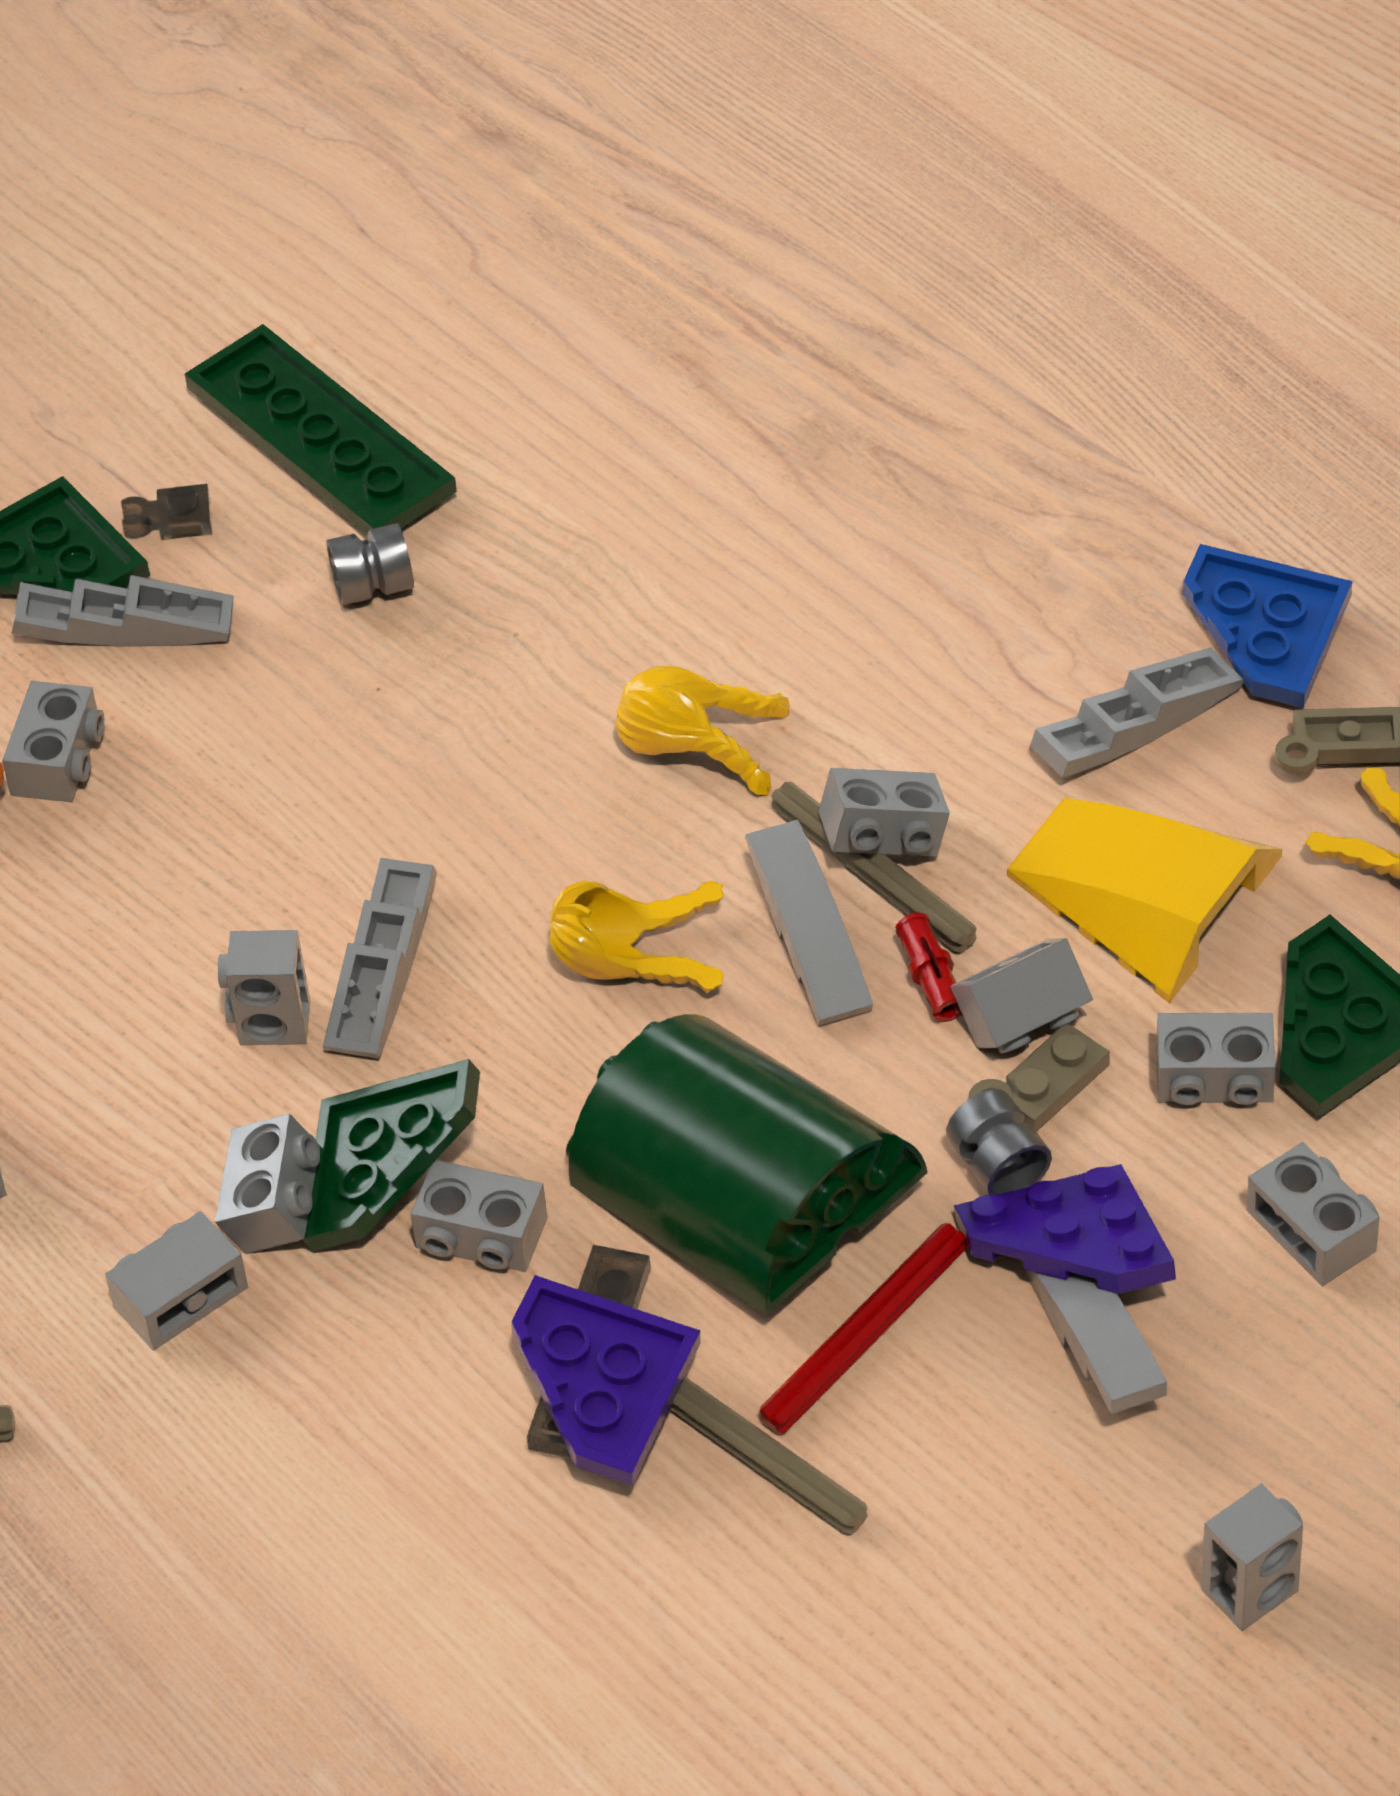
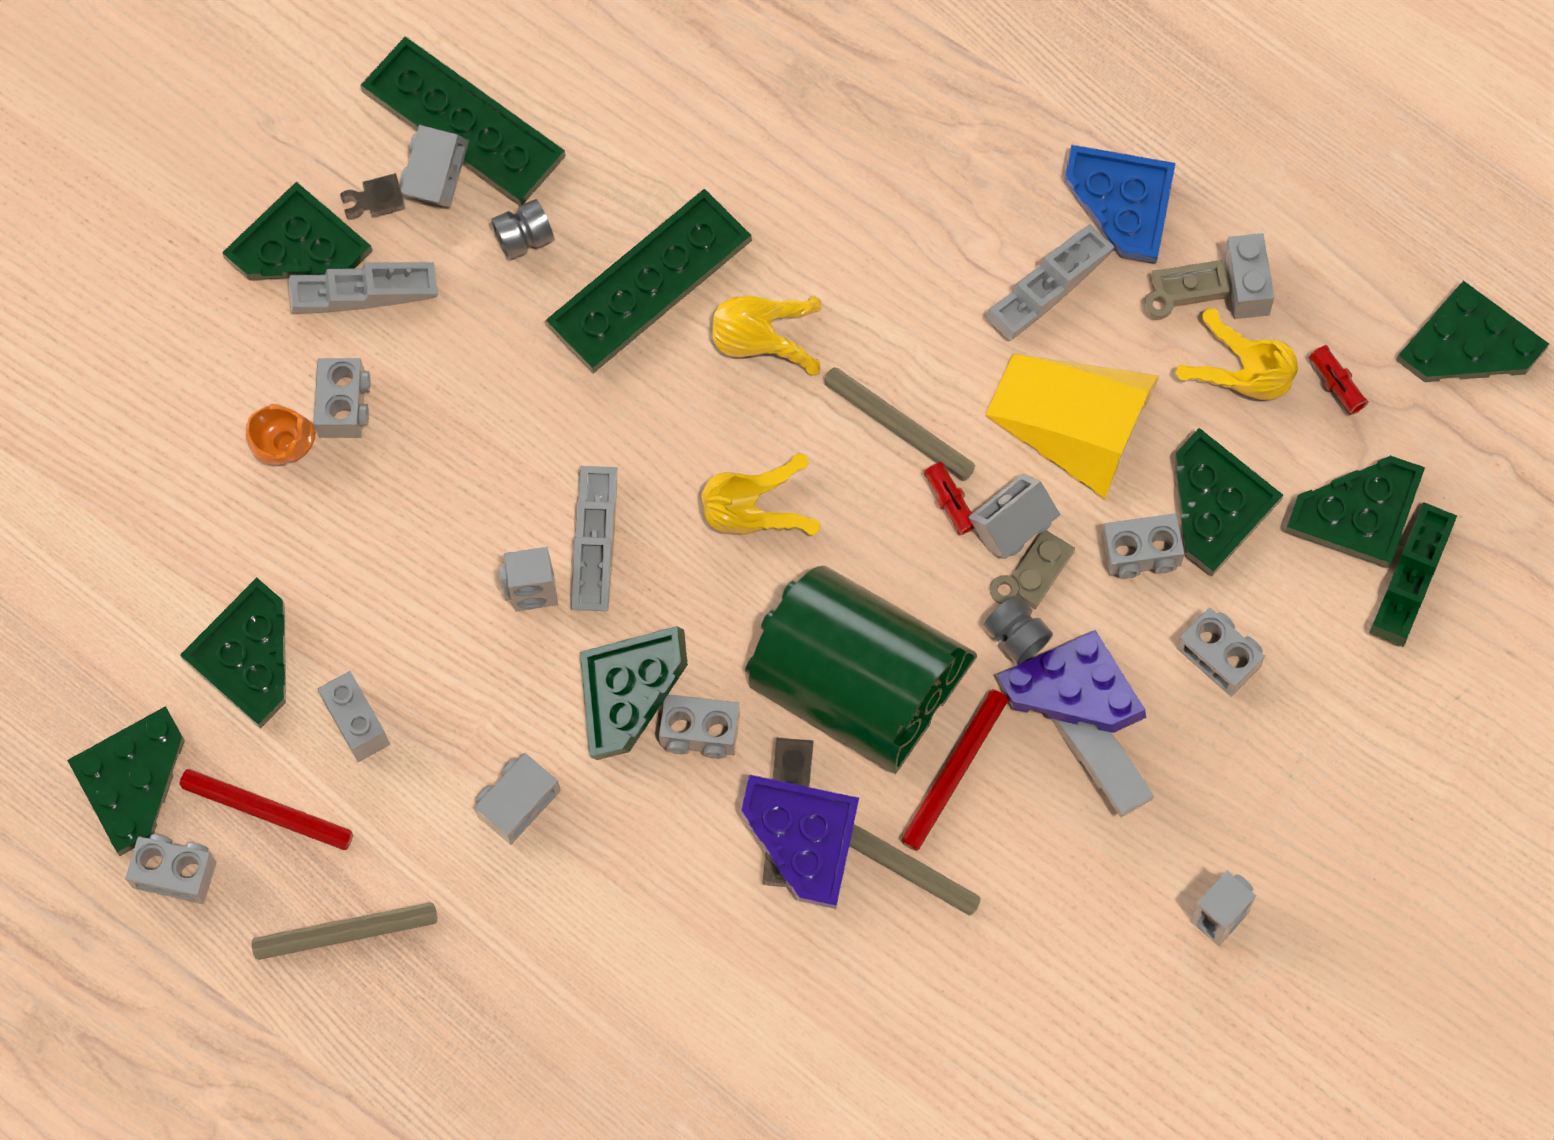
camera: 10 degrees left, 20 degrees up
(262, 473) = (433, 166): none -> light grey brick
(267, 1183) = (553, 724): light grey brick -> none
(538, 648) = (648, 280): none -> dark green plate
(809, 922) = (867, 475): light grey slope -> none
(883, 812) = (902, 389): light grey brick -> none

